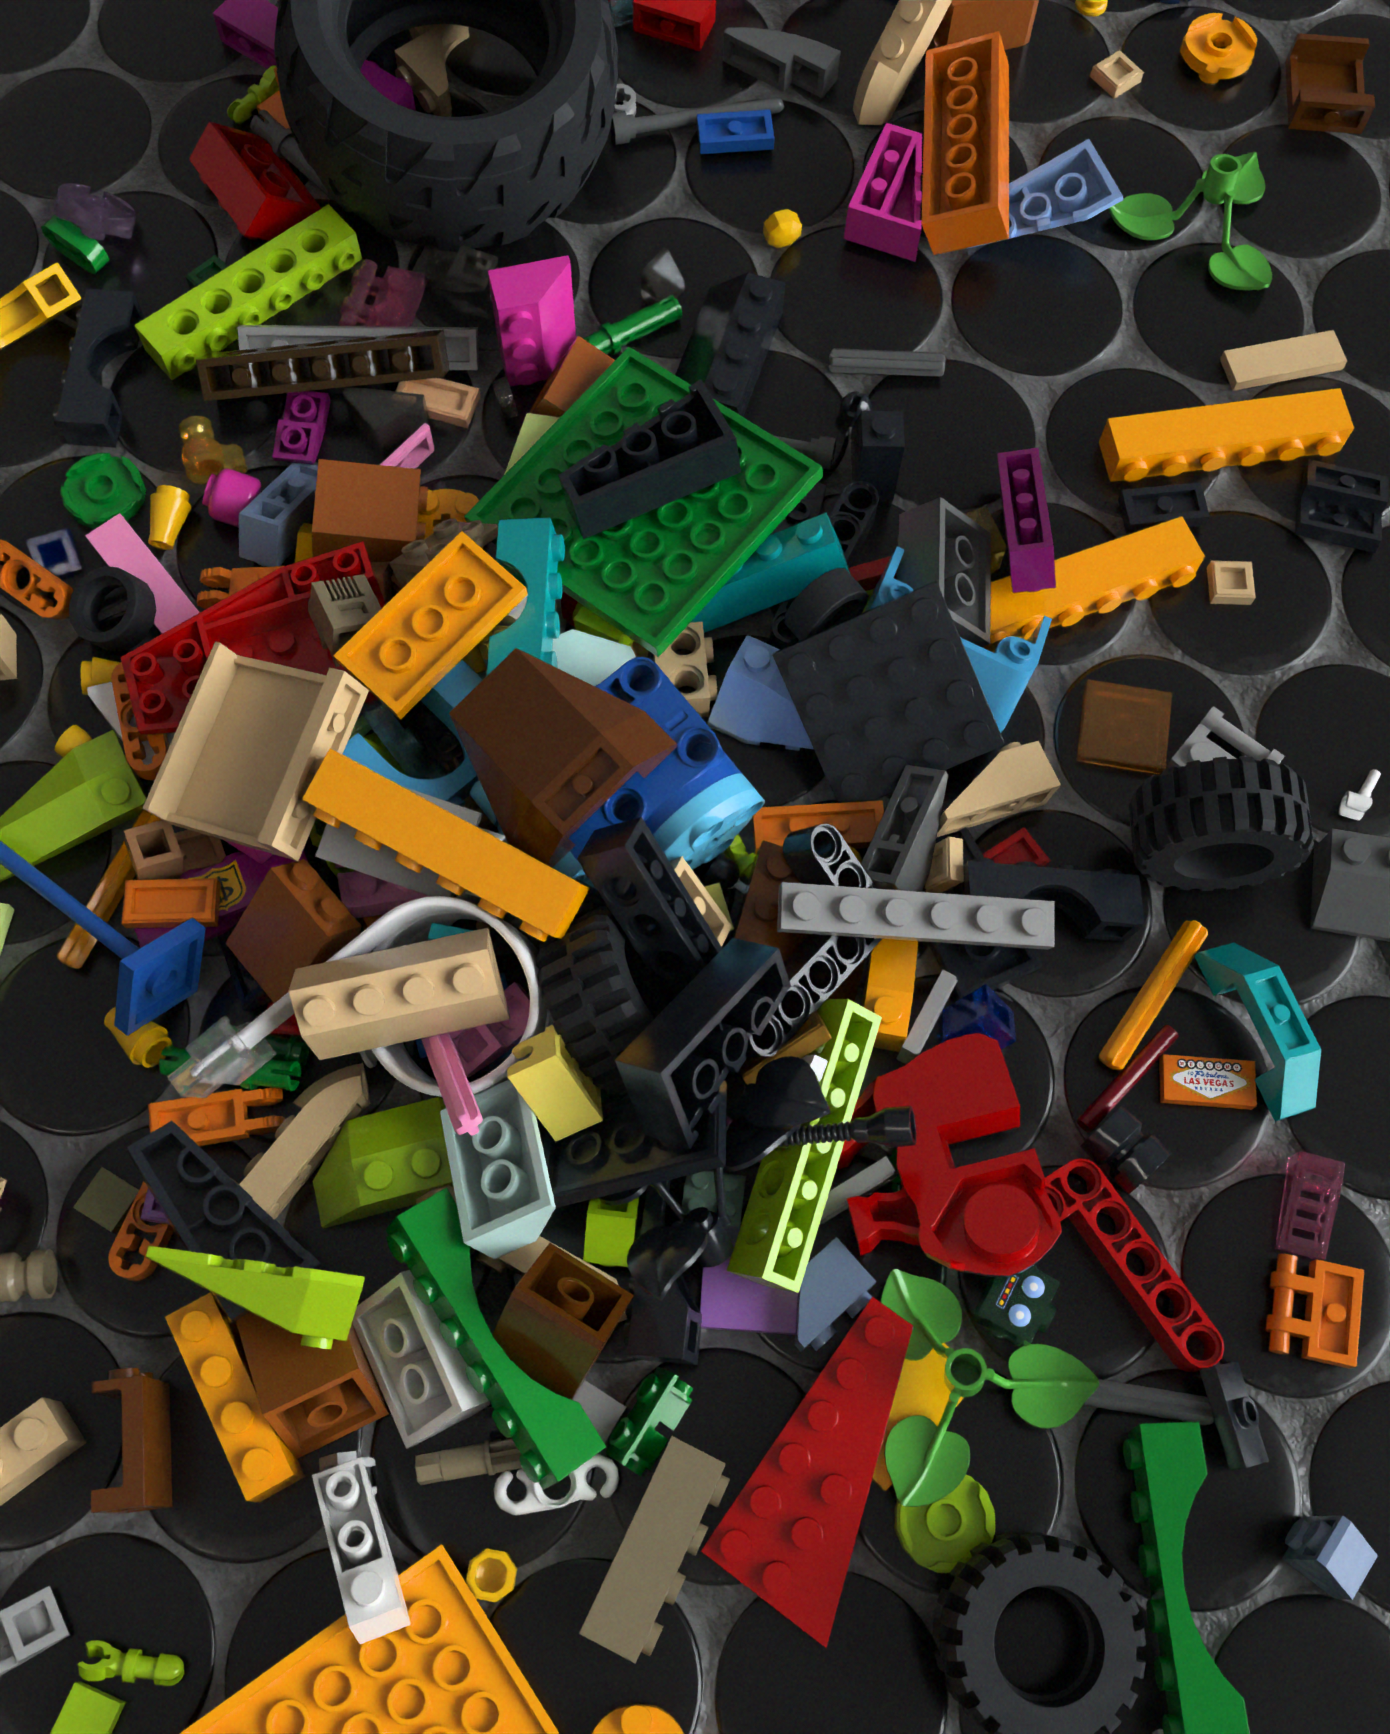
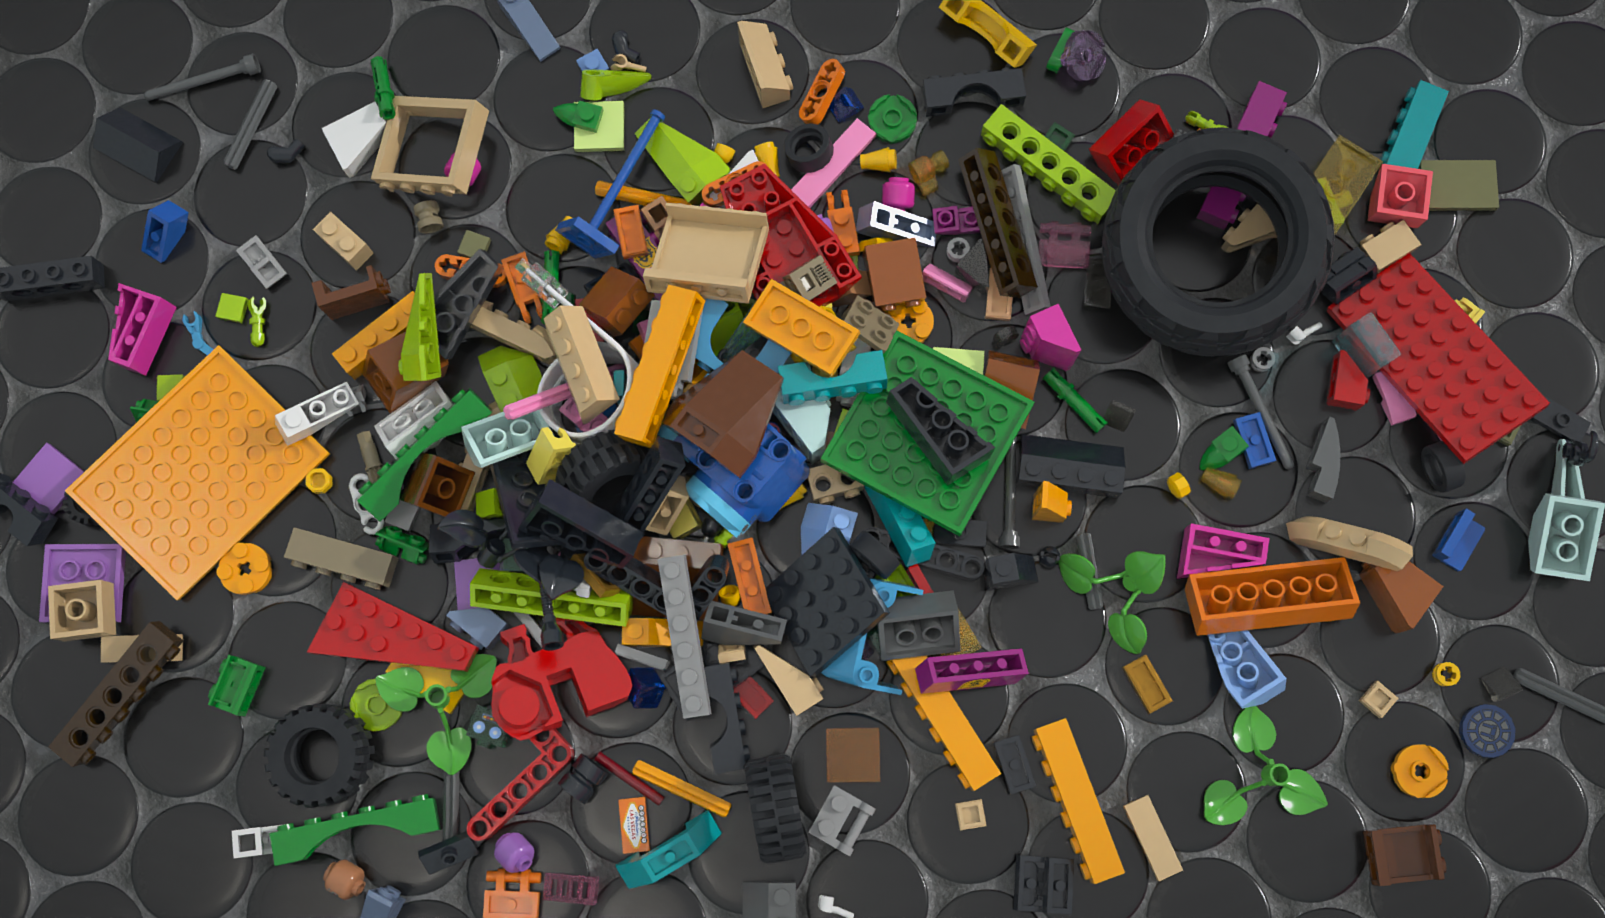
camera: 85 degrees right, 10 degrees up
(347, 427) = (957, 241): none -> light grey bush
(741, 166) = (1223, 449): none -> green plate
(781, 379) = (1051, 503): none -> light orange slope
(789, 177) = (1222, 482): none -> clear yellow cone
(919, 253) = (1142, 574): none -> bright green plant
(1062, 326) = (1147, 684): none -> pearl gold tile
(1245, 1291) = (514, 852): none -> medium lavender head
(1271, 1628) = (344, 879): none -> nougat head

